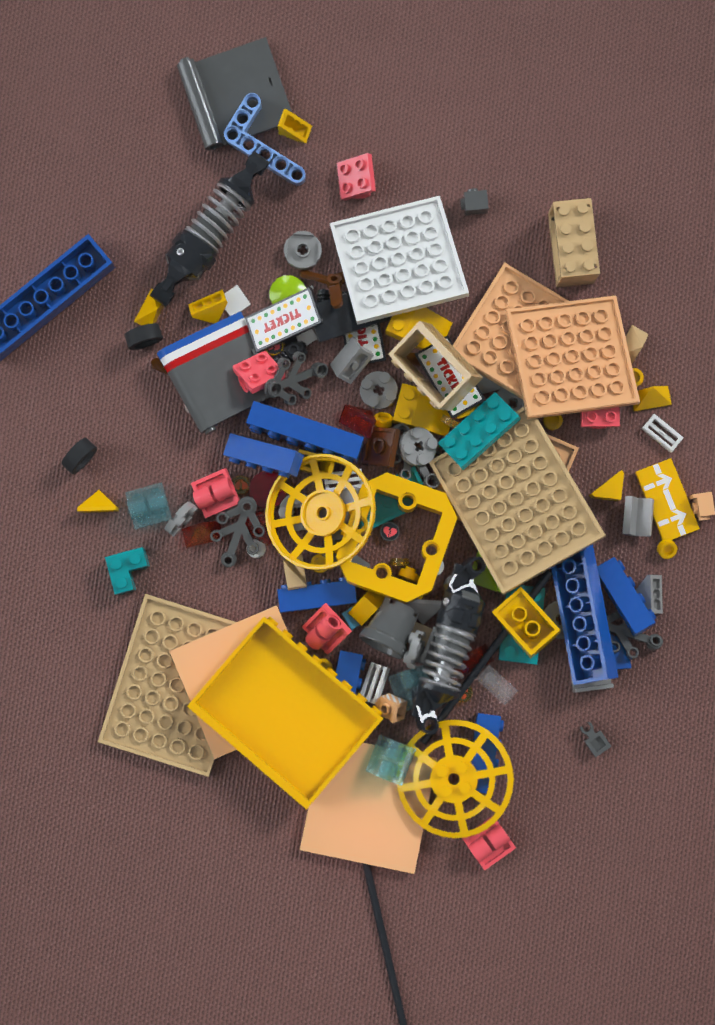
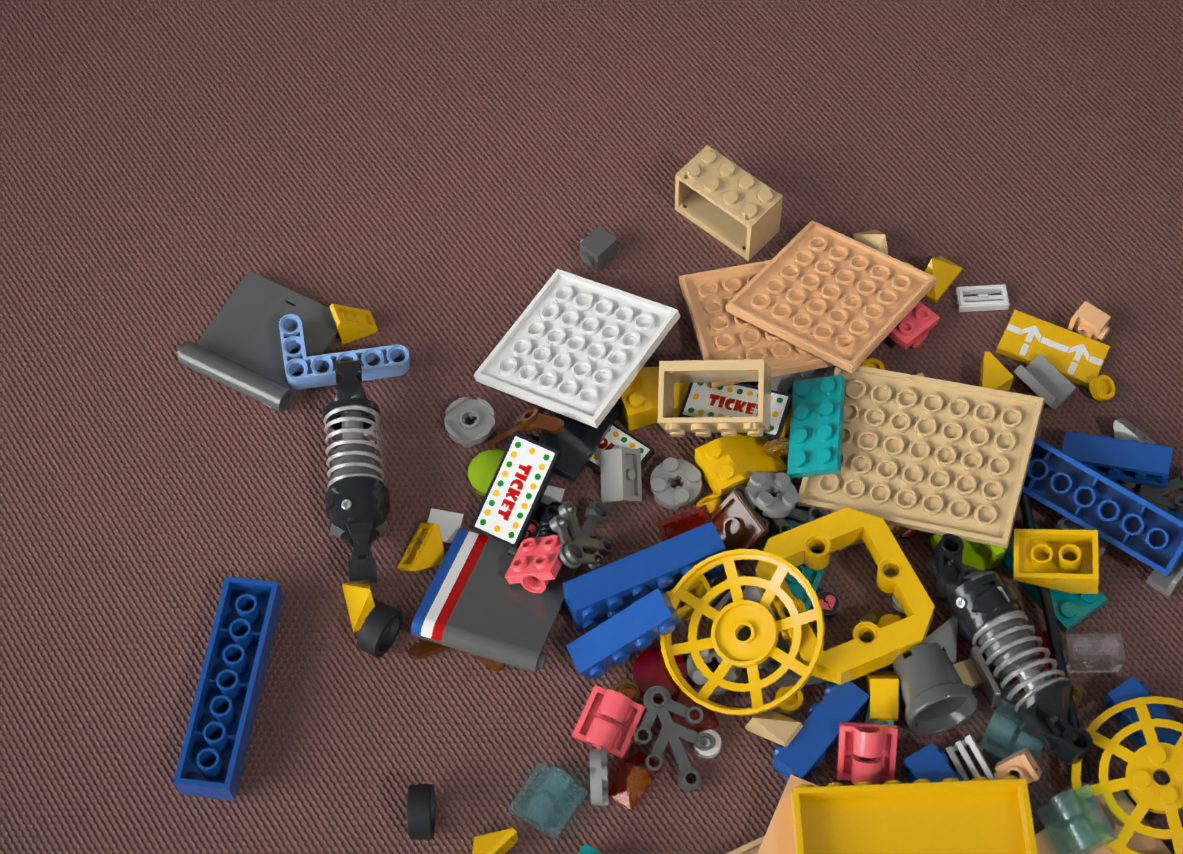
camera: 40 degrees left, 25 degrees down
(356, 177) = (460, 314): coral plate -> none
(415, 650) = (974, 677): light grey plate -> none

